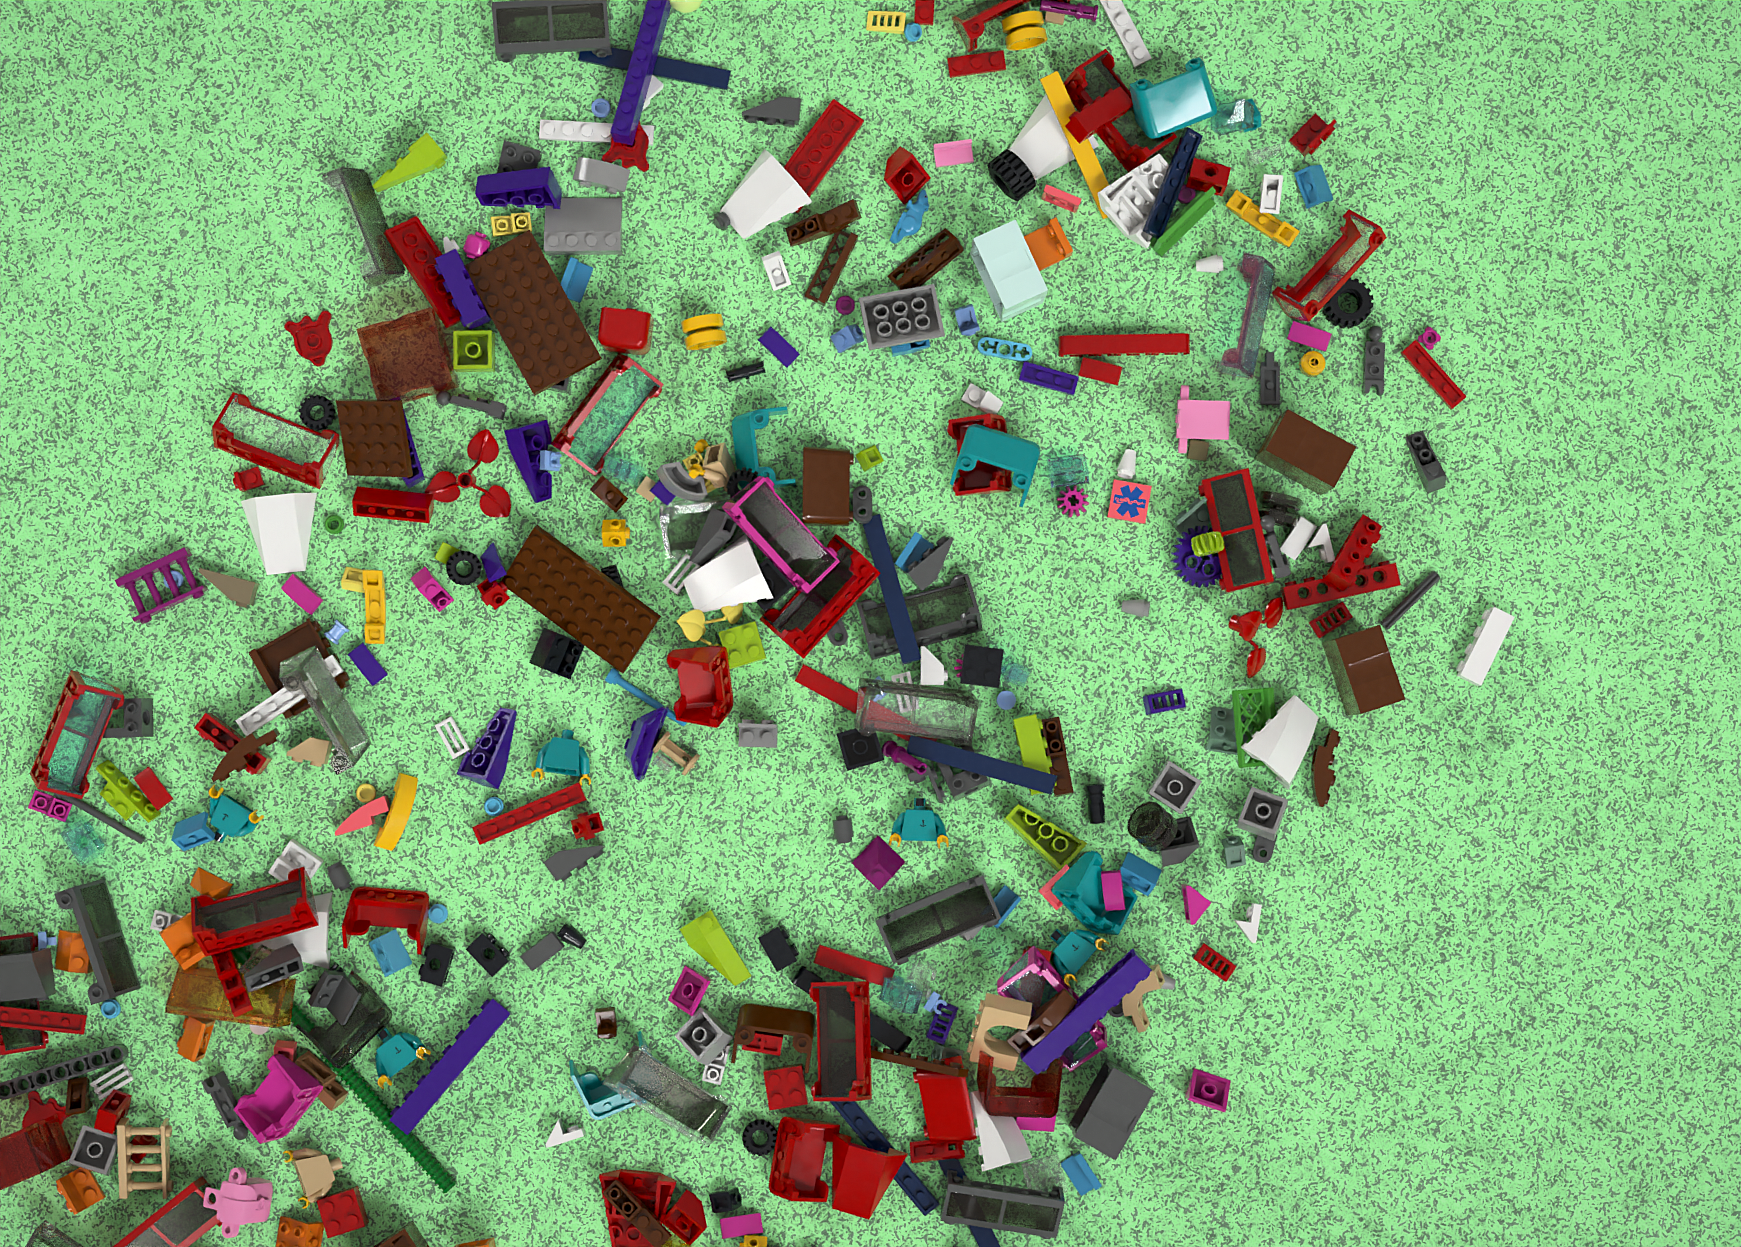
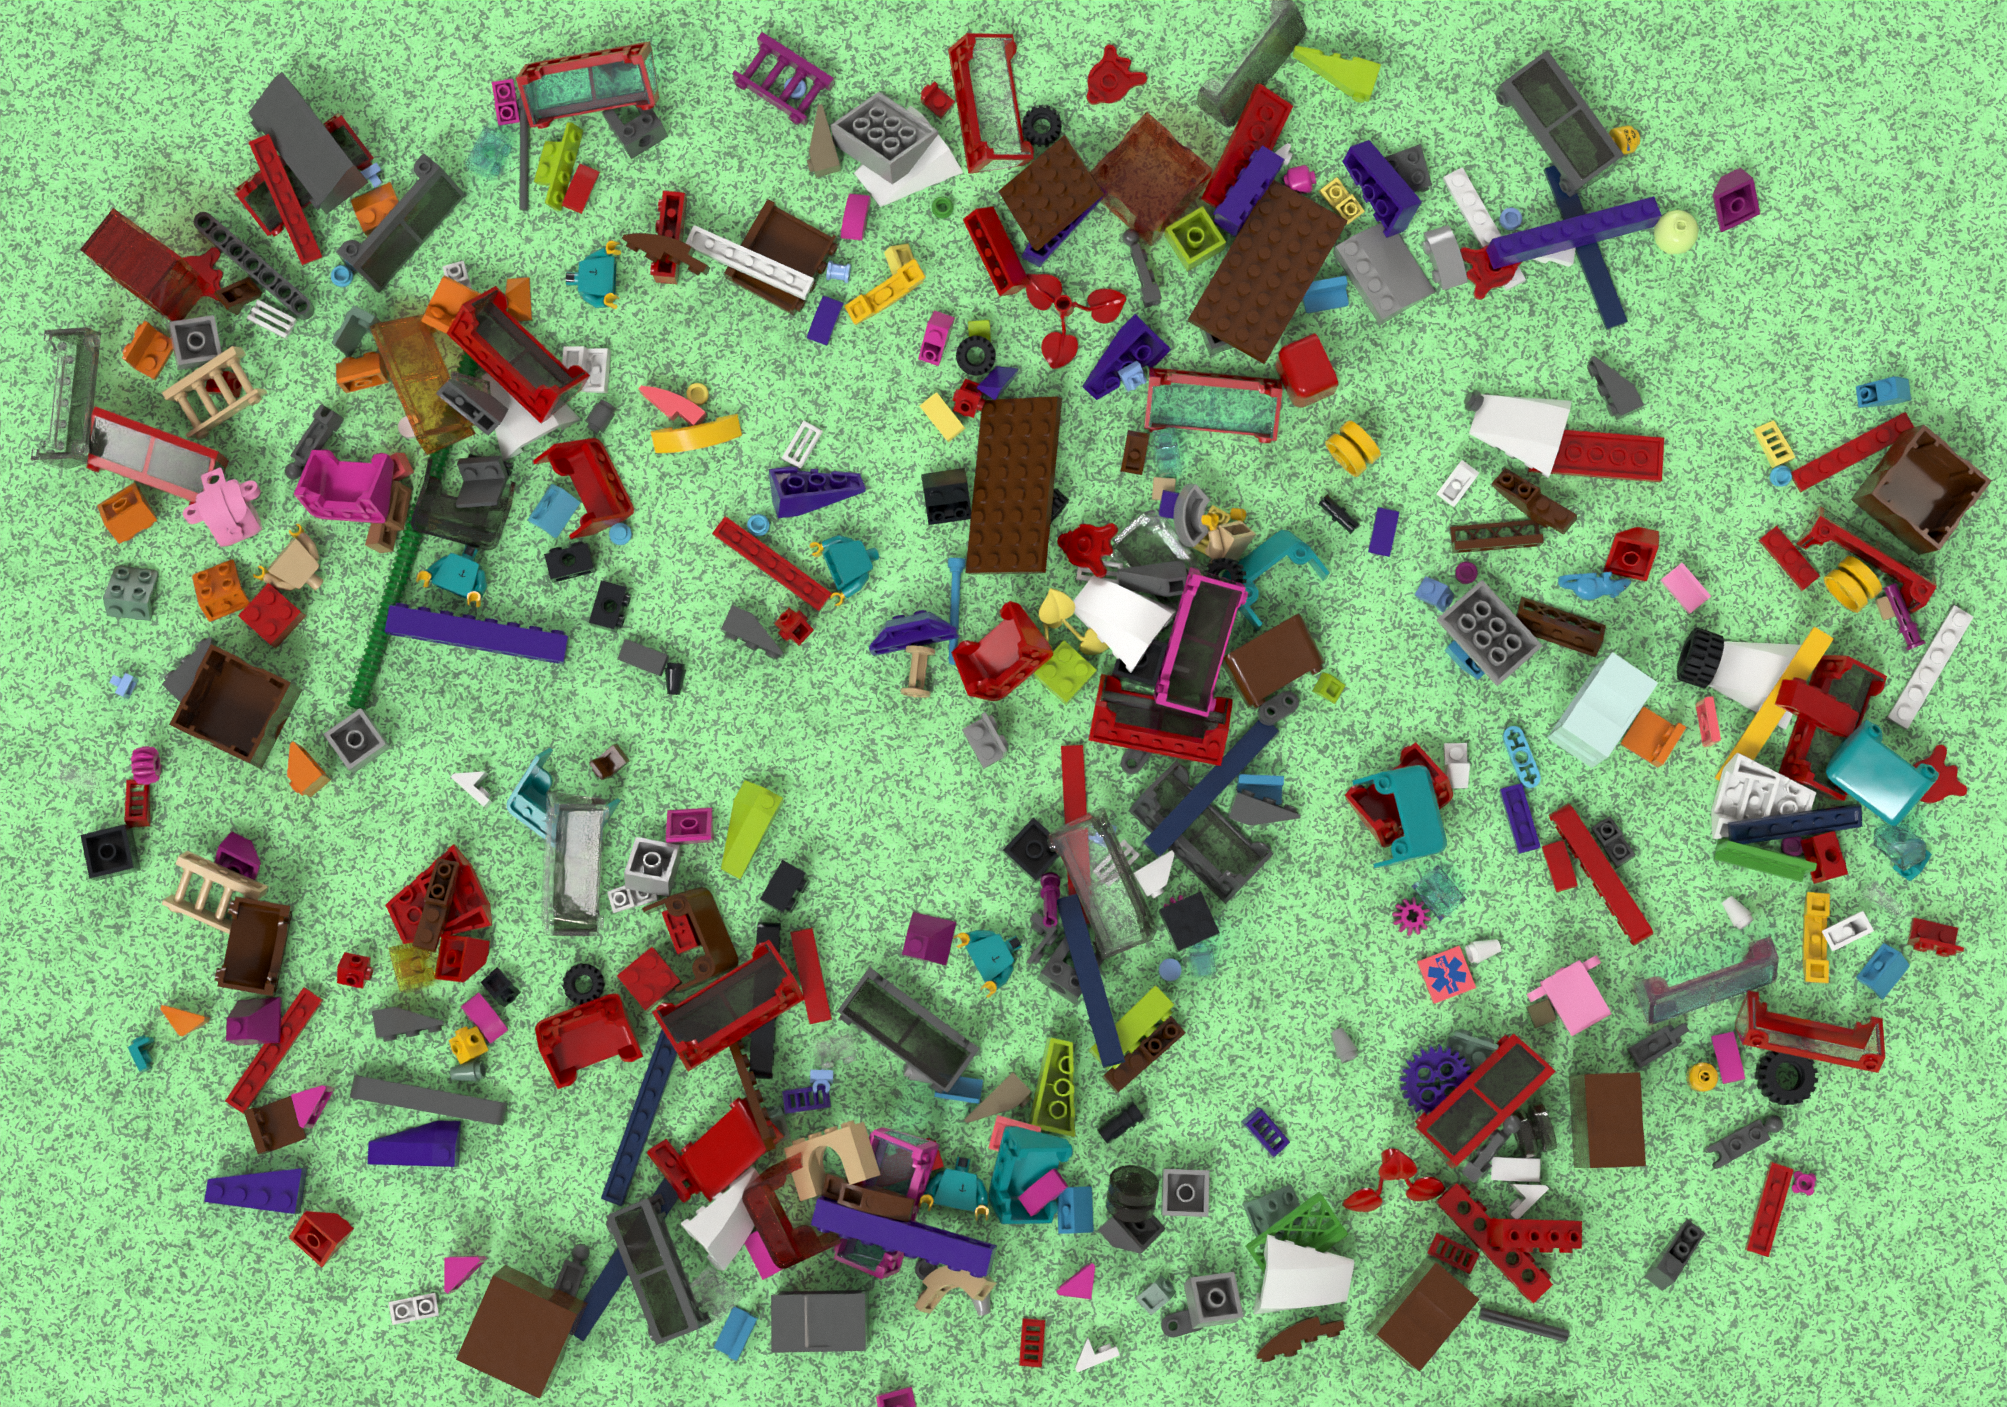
camera: 60 degrees right, 5 degrees down
(112, 1110) = (243, 334): red brick -> none
(159, 1026) = (353, 329): none -> sand green bracket
(192, 832) = (560, 250): dark azure panel -> none
(232, 982) = (436, 373): red slope -> none
(253, 537) = (883, 137): none -> light grey slope
(312, 675) = (763, 304): windscreen -> none
(313, 750) = (709, 317): tan slope -> none
(477, 1202) = (357, 740): none -> light grey brick
(495, 620) = (942, 417): none -> light yellow slope
(615, 533) = (1100, 481): yellow brick -> none
(658, 571) = (1088, 545): none -> red tile
(663, 763) = (901, 665): clear bush -> none
(843, 829) = (941, 883): dark grey brick -> none
(861, 1175) = (604, 1108): red wedge -> none
(901, 995) = (810, 1039): clear light blue brick -> none
(966, 320) = (1527, 701): medium blue bracket -> none
(1027, 877) = (1004, 1098): none -> dark tan slope
(1105, 321) = (1612, 842): none -> dark grey slope
(1207, 53) = (1947, 780): none -> red tile
(1207, 543) = (1452, 1076): lime gear -> none

